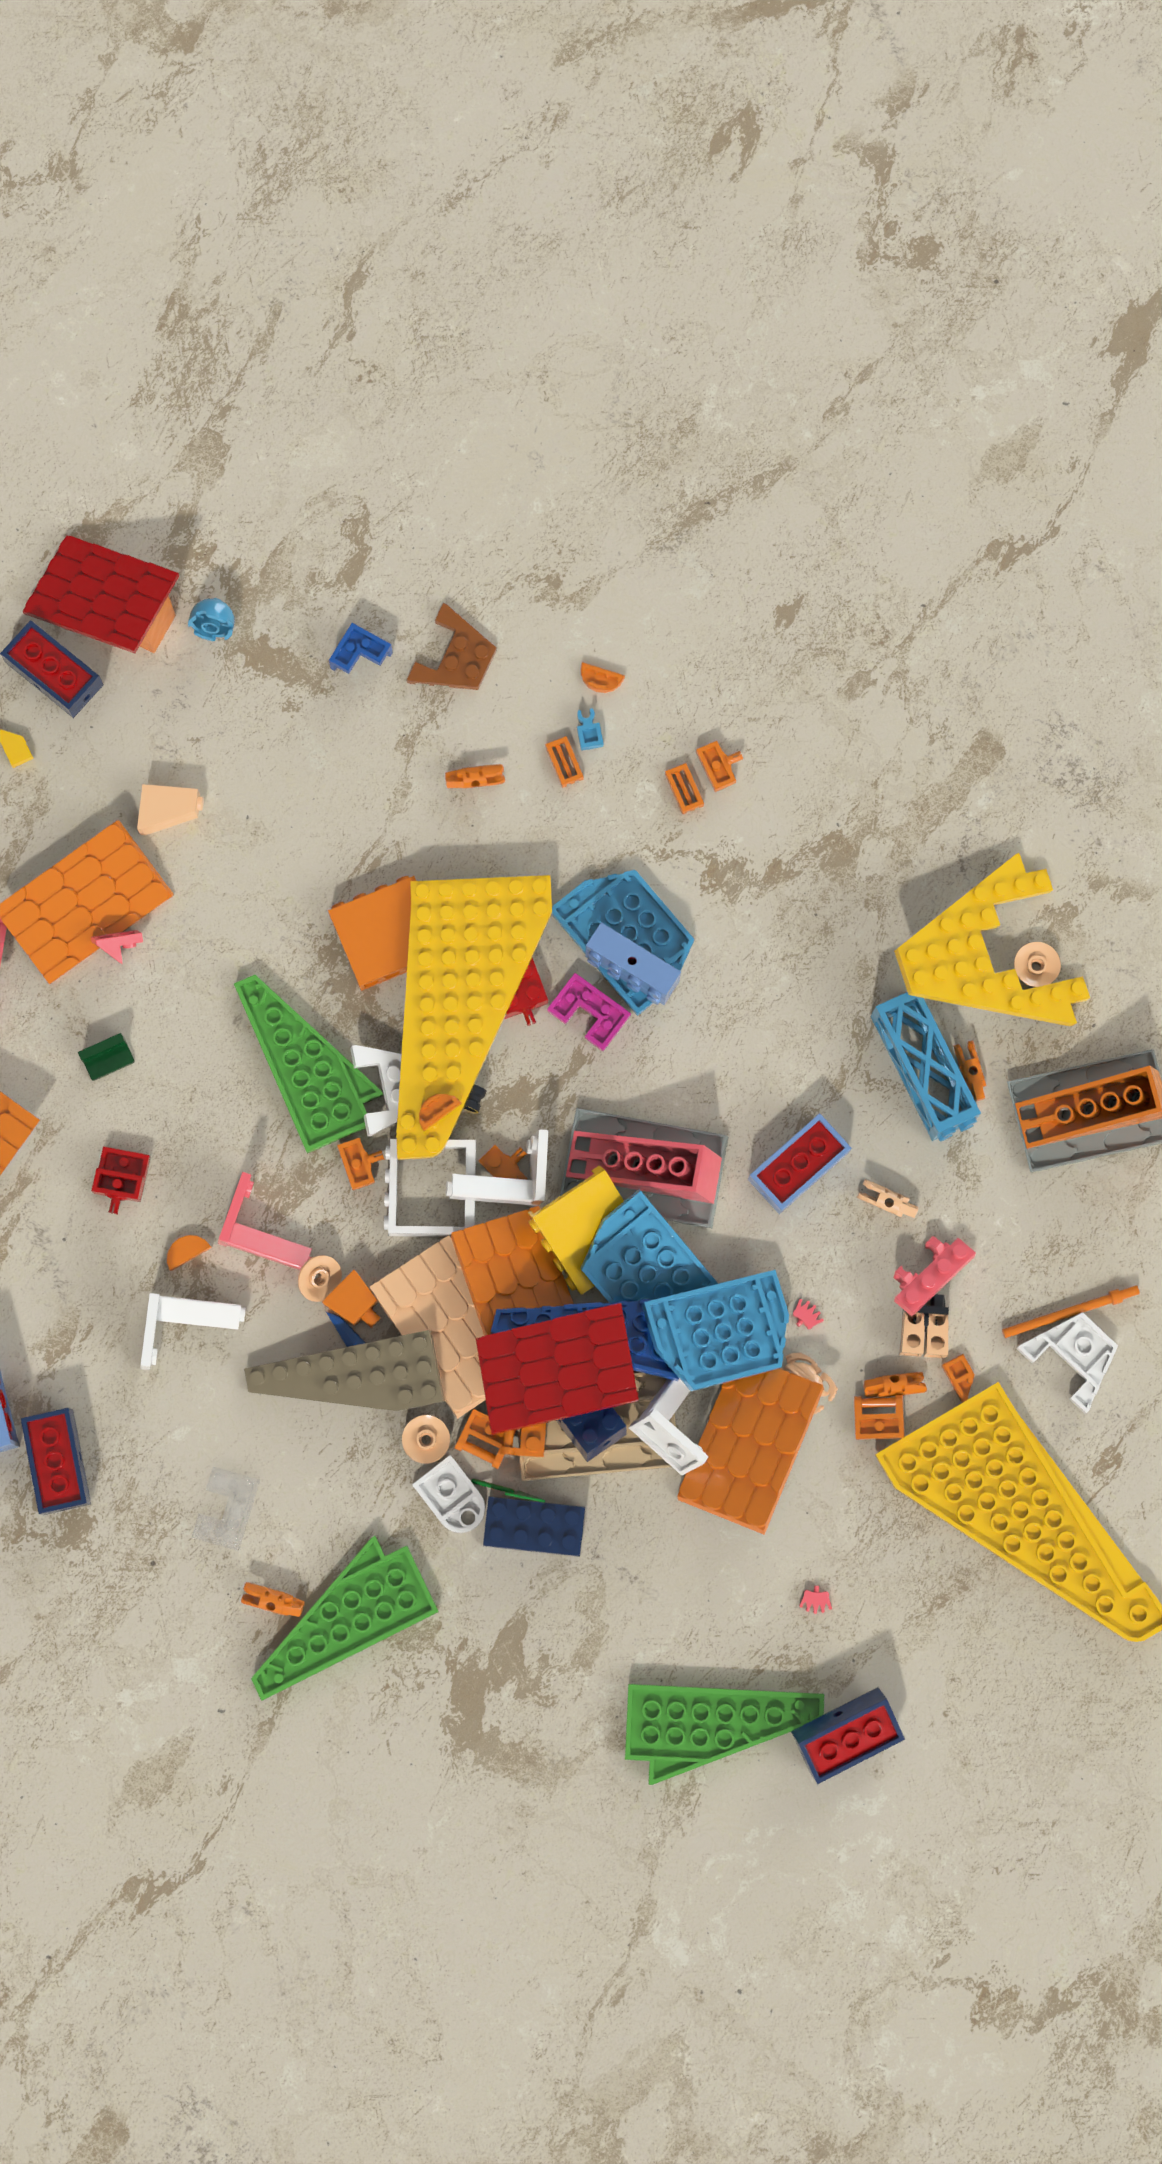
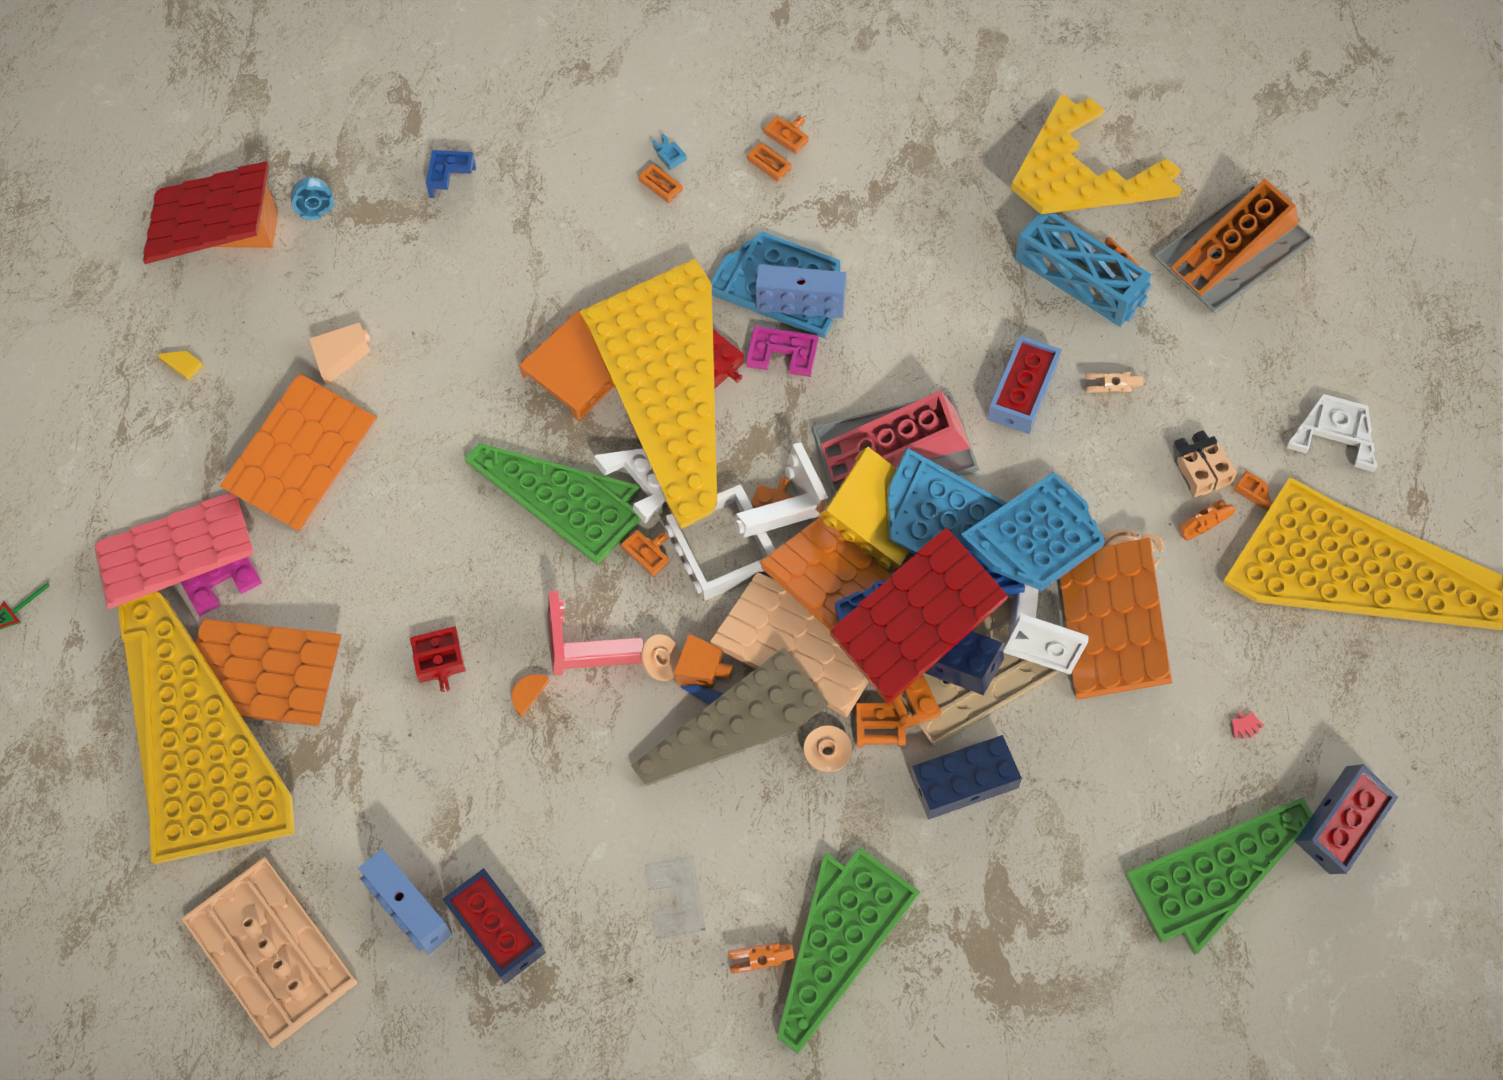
camera: 20 degrees left, 15 degrees down
(52, 669) = (188, 288): brick -> none
(106, 1057) = (377, 565): dark green panel -> none
(111, 942) = (342, 471): coral slope -> none
(186, 1312) = (549, 739): white piece -> none
(436, 1108) = (695, 468): orange tile -> none
(451, 1494) = (874, 788): white tile -> none
(464, 660) = (539, 145): dark orange wing -> none
(474, 1098) = (722, 461): black wheel -> none
(475, 776) = (592, 221): orange hinge -> none
(508, 1491) = (930, 755): green piece -> none
(600, 679) = (657, 115): orange tile -> none
(805, 1316) = (1099, 502): coral piece -> none
(879, 1425) = (1213, 555): orange plate -> none
(921, 1288) = (1190, 411): coral hinge -> none
(1042, 955) = (1125, 157): light nougat dish -> none
(1114, 1297) = (1339, 374): orange bar -> none

